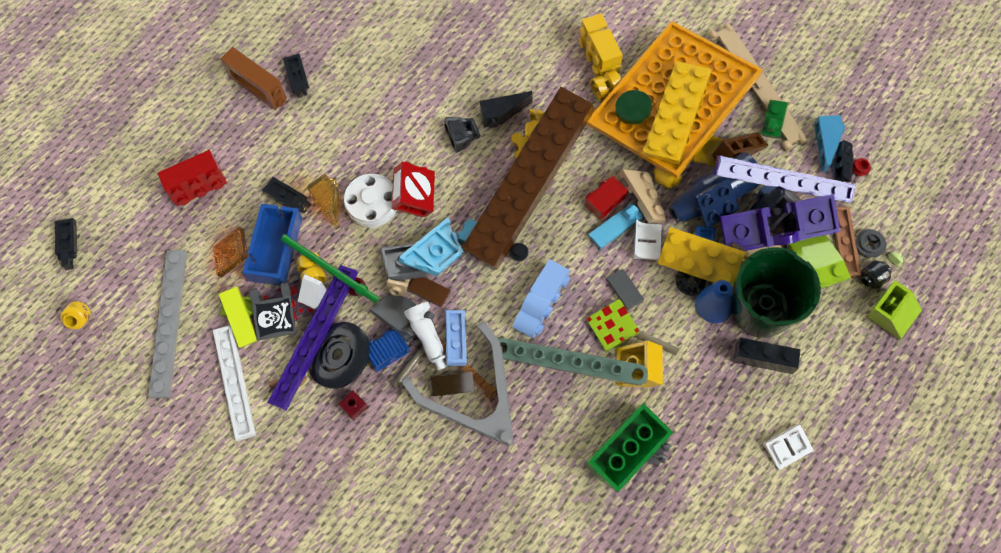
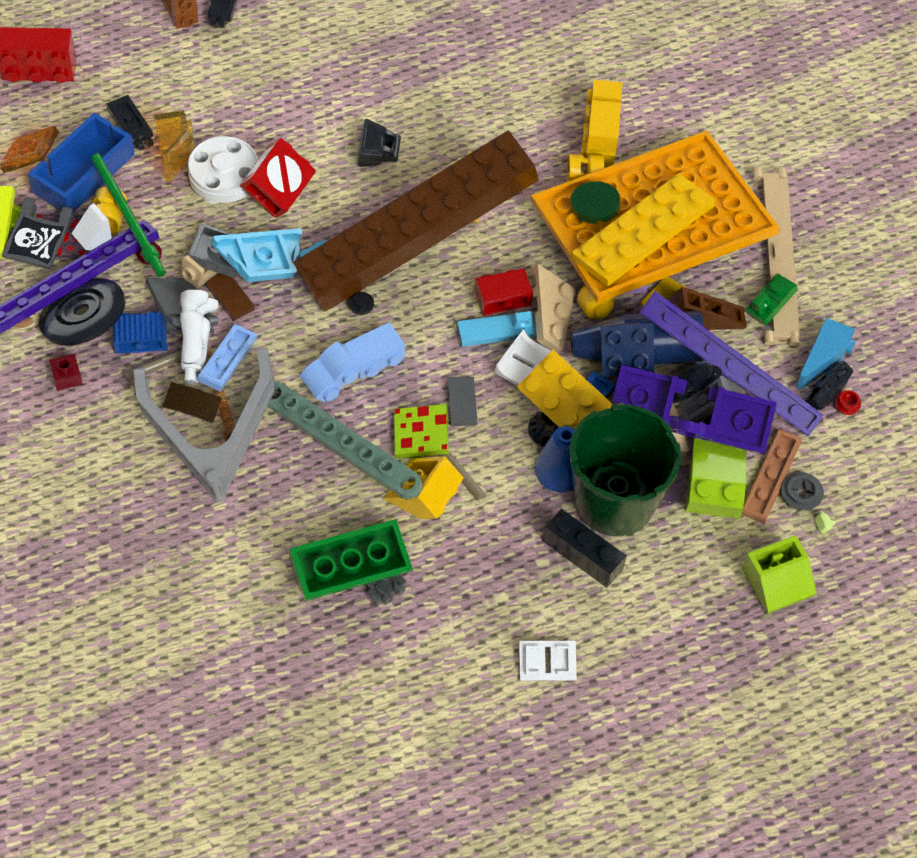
camera: 20 degrees right, 10 degrees down
(500, 109) = (443, 141): black slope -> none
(876, 274) = (783, 524): black head -> none

